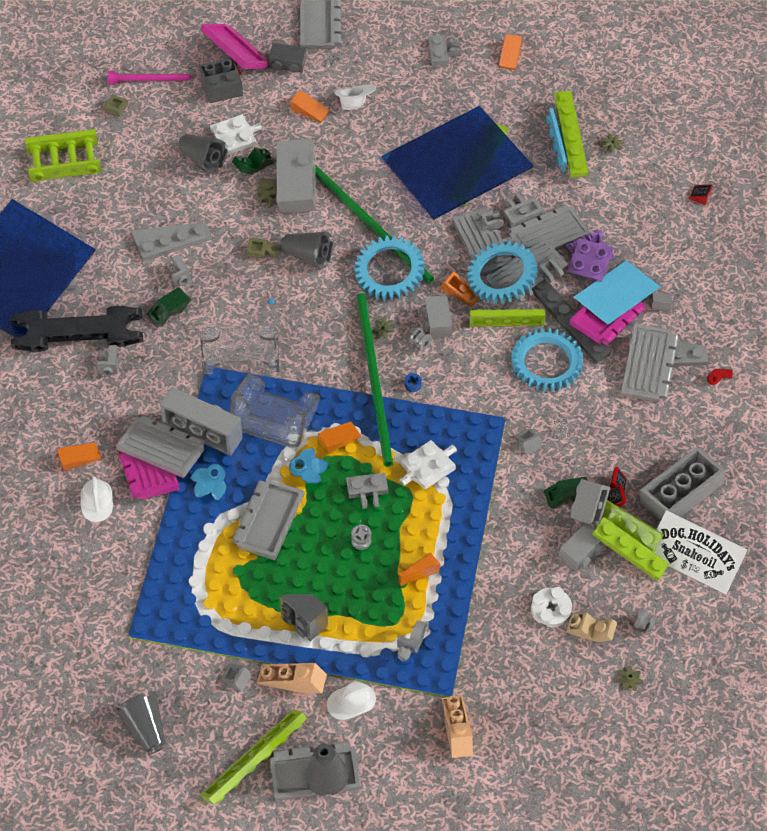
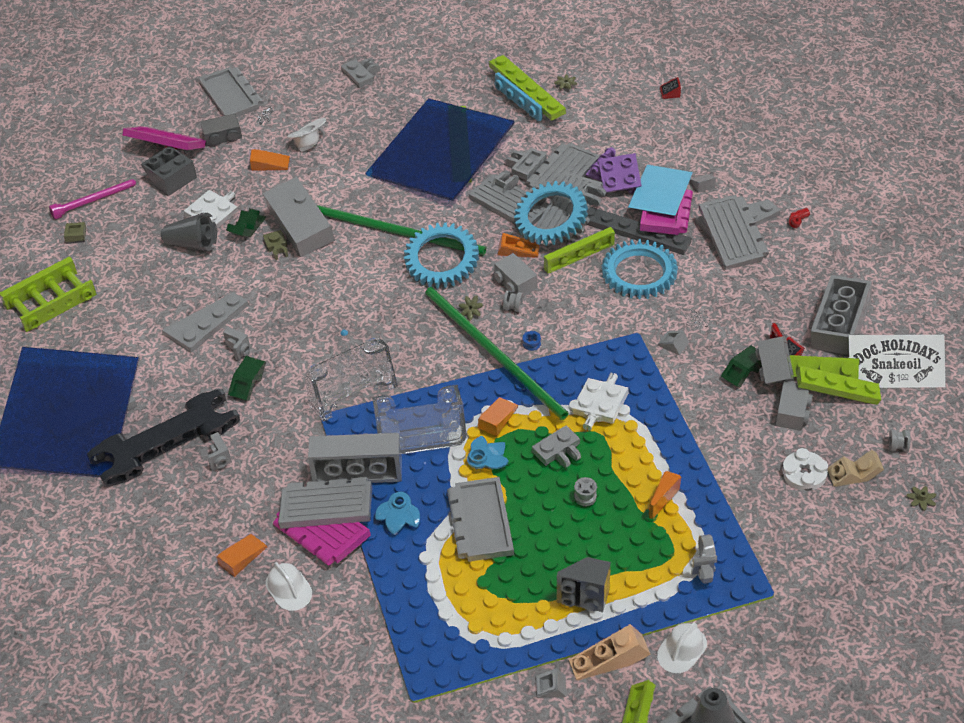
camera: 25 degrees left, 10 degrees down
(259, 248) = (303, 291): olive plate -> none
(309, 247) = (351, 269): dark grey cone -> none
(457, 727) = (805, 618): light nougat slope -> none
(510, 51) = (424, 49): orange slope -> none

